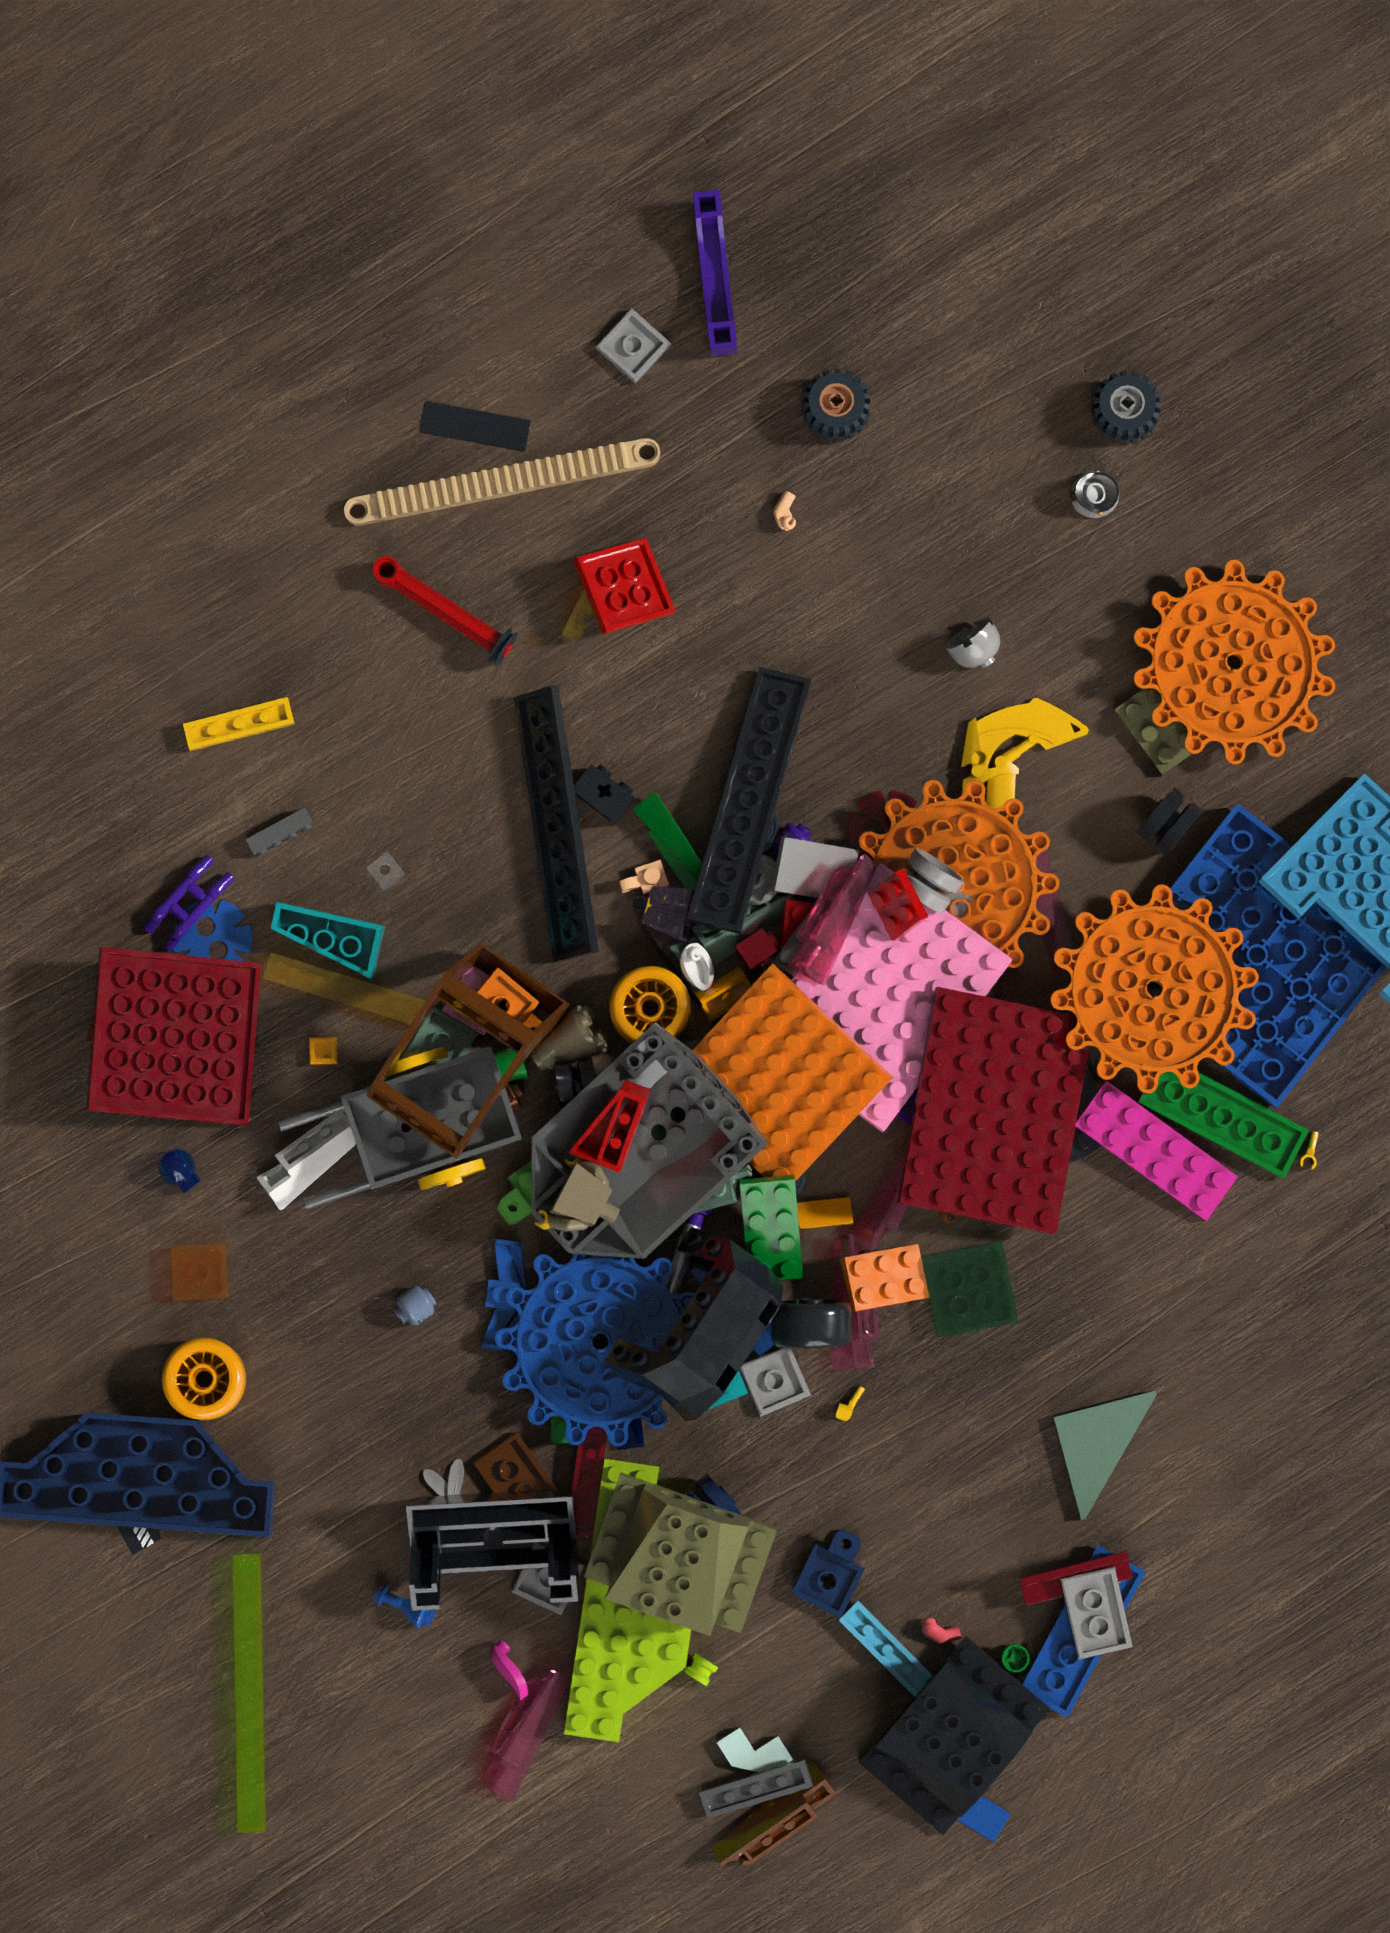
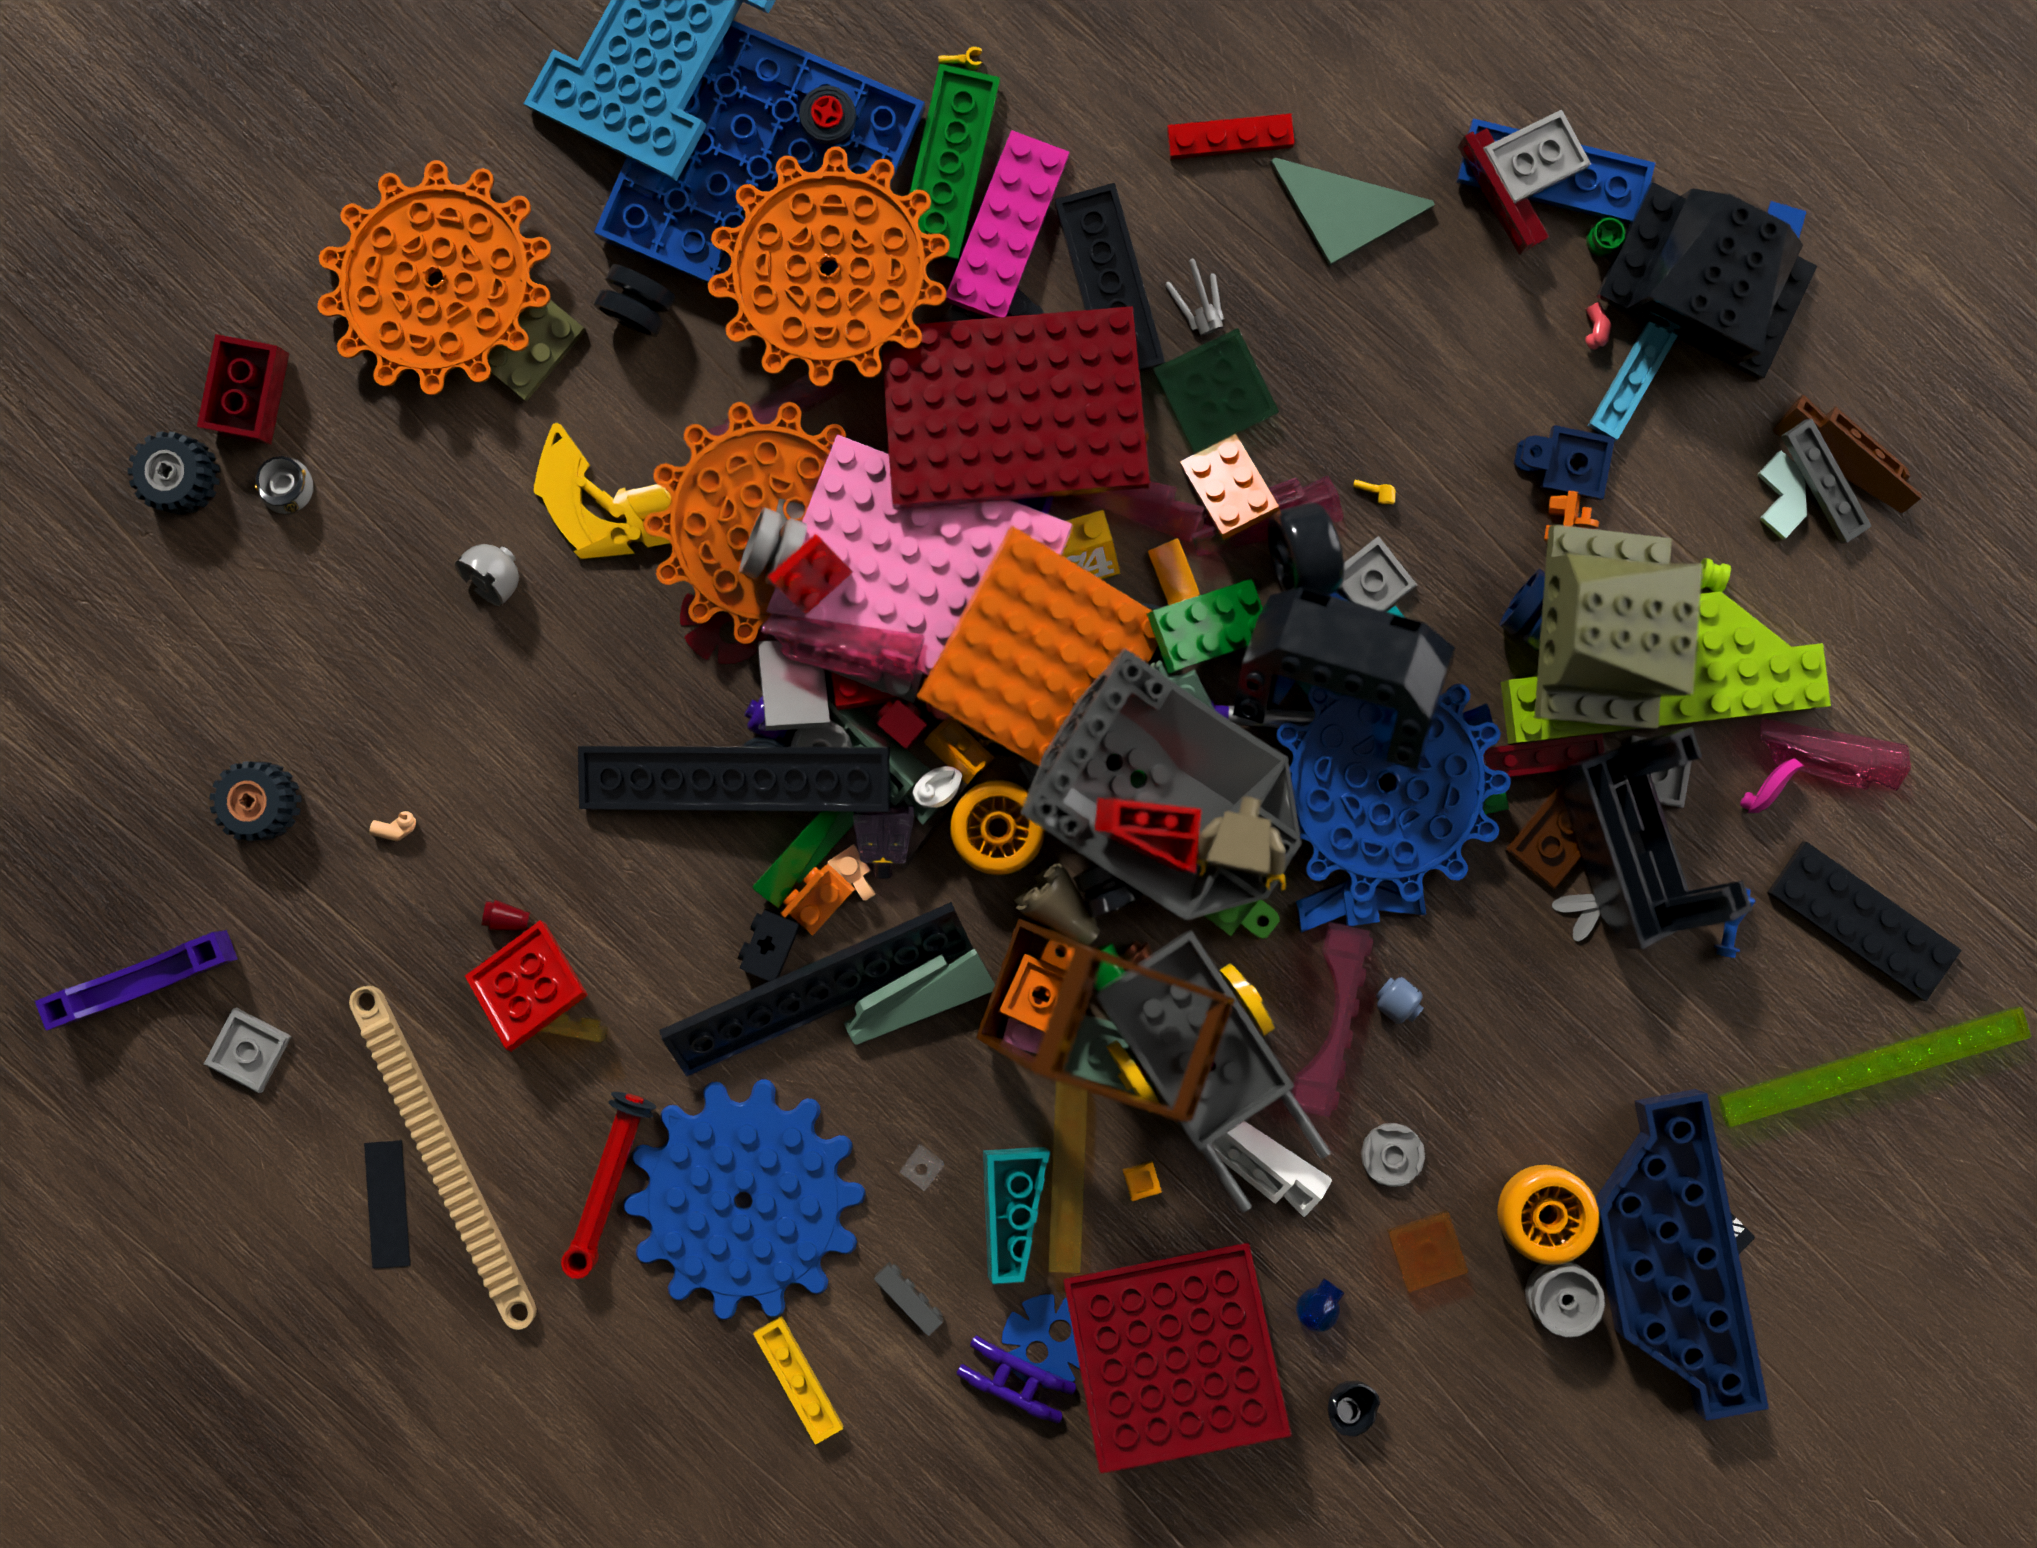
camera: 110 degrees left, 5 degrees up
(89, 1173) = (1353, 1407): none -> black hair
(147, 1374) = (1563, 1314): none -> light grey wheel
(287, 1266) = (1392, 1154): none -> light grey tile
(373, 1720) = (1864, 921): none -> black plate
(409, 758) = (752, 1151): none -> blue plate
(466, 1269) = (1316, 1083): none -> clear pink arch
(528, 906) = (920, 995): none -> sand green wedge
(630, 843) = (818, 899): none -> orange bracket
(686, 582) = (503, 916): none -> dark red cone
(781, 1564) = (1569, 508): none -> orange hips
(864, 1146) = (1092, 545): none -> yellow slope
(1033, 1299) = (1207, 318): none -> light grey plant
(1099, 1227) = (1107, 263): none -> black plate
(1180, 481) = (243, 389): none -> dark red brick
(1185, 1362) = (1230, 136): none -> red plate
(1291, 1015) = (822, 105): none -> black wheel

